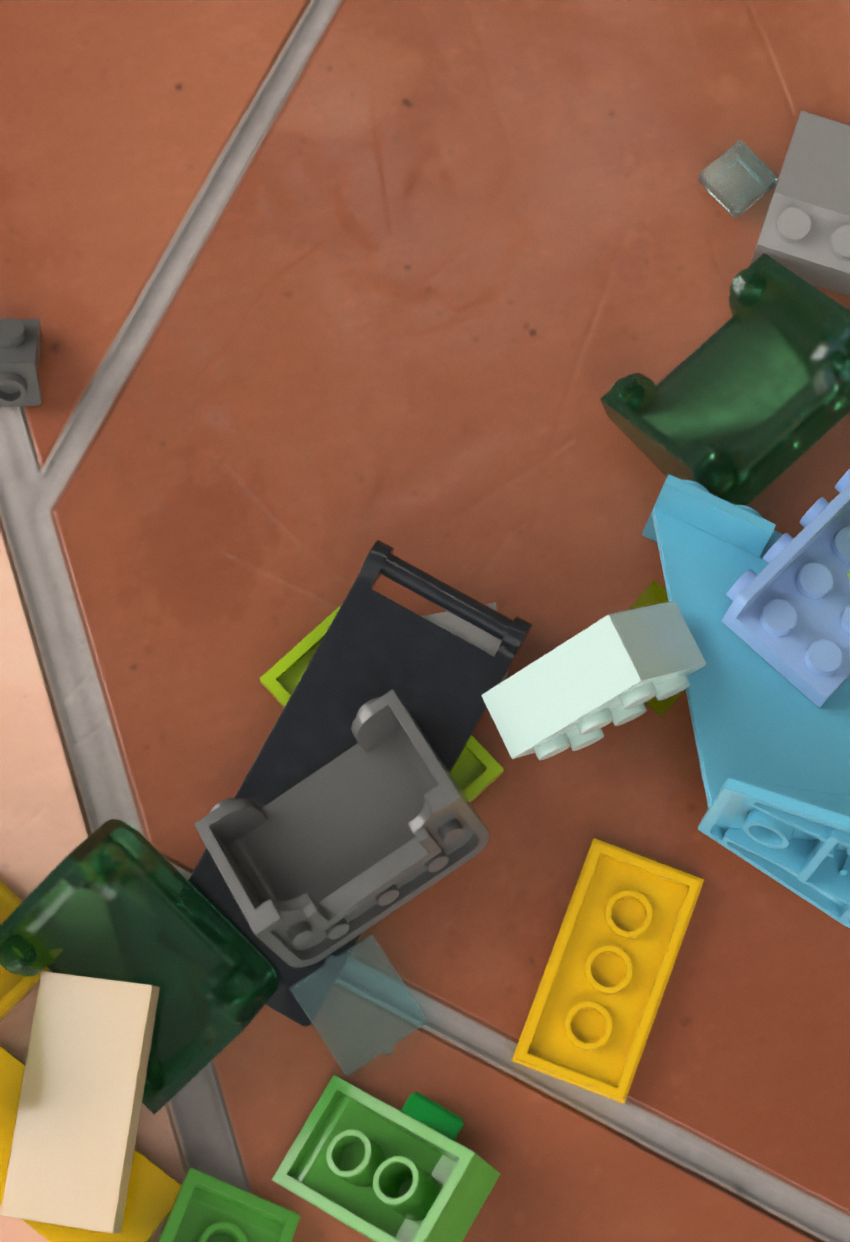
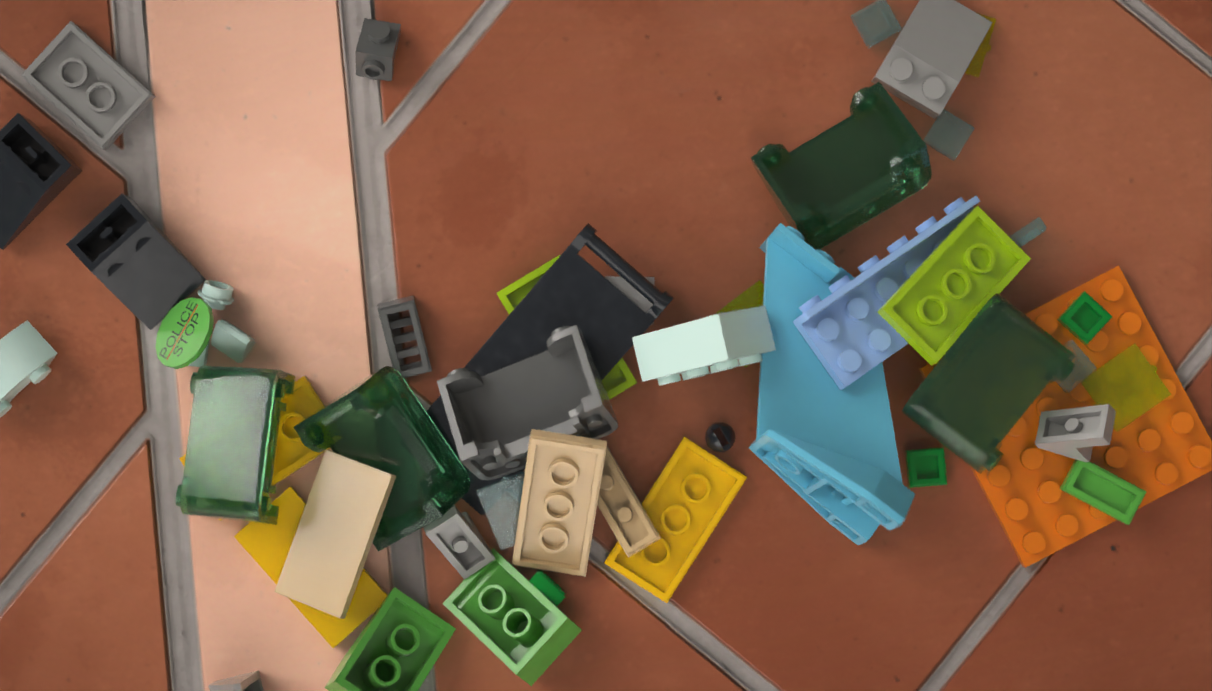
camera: 10 degrees right, 10 degrees up
(111, 733) = (395, 306): none -> dark grey slope
(278, 1072) = (460, 542): none -> light grey slope
(422, 975) = (559, 502): none -> tan tile
(510, 956) = (624, 510): none -> tan tile
(639, 836) = (713, 441): none -> black hinge

